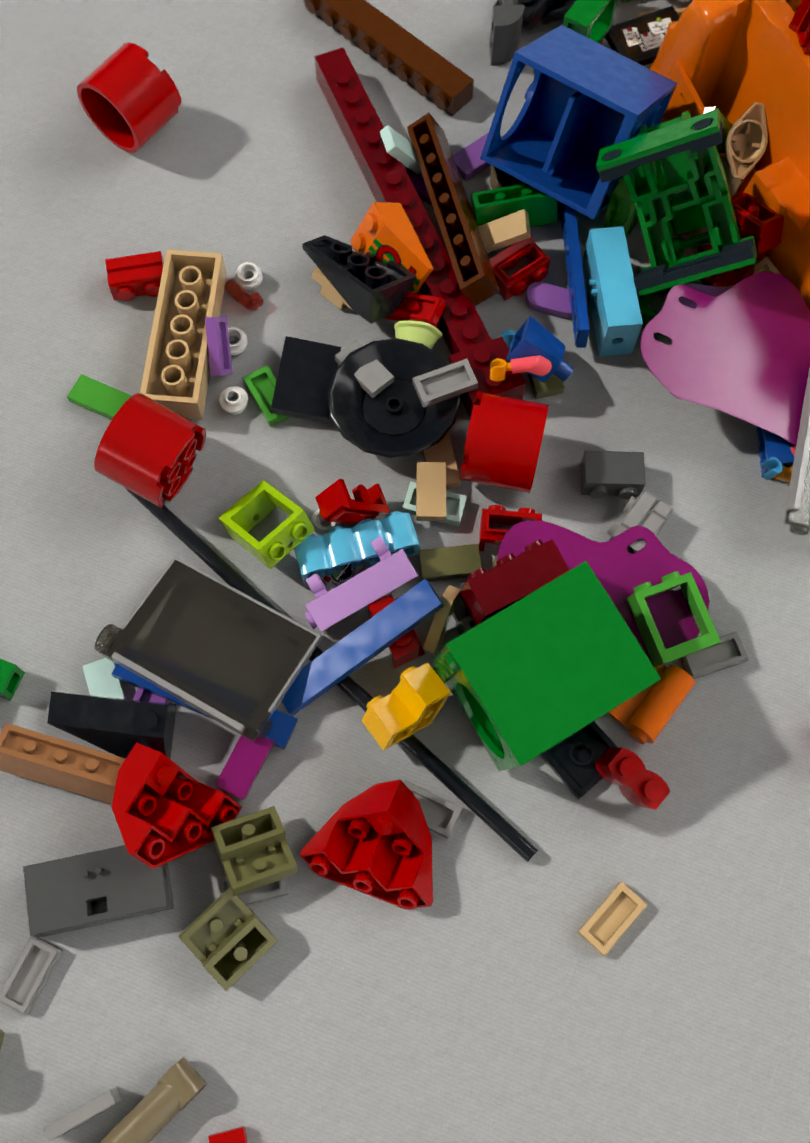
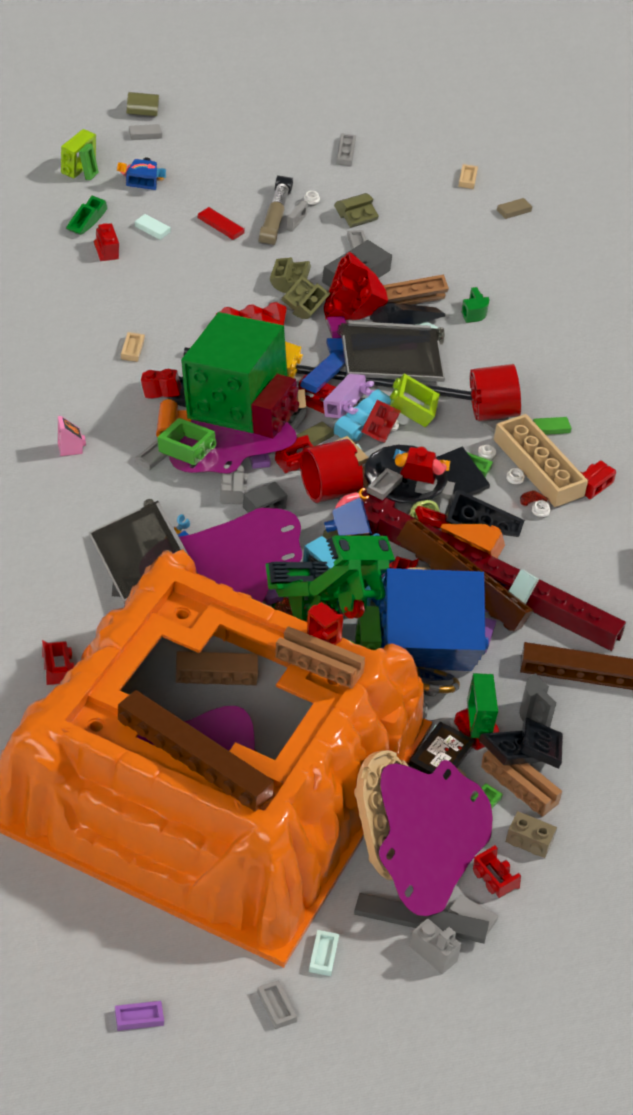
camera: 140 degrees right, 25 degrees down
(218, 345) = (515, 458): medium lavender tile -> none
(384, 368) = (420, 464): none -> red torso

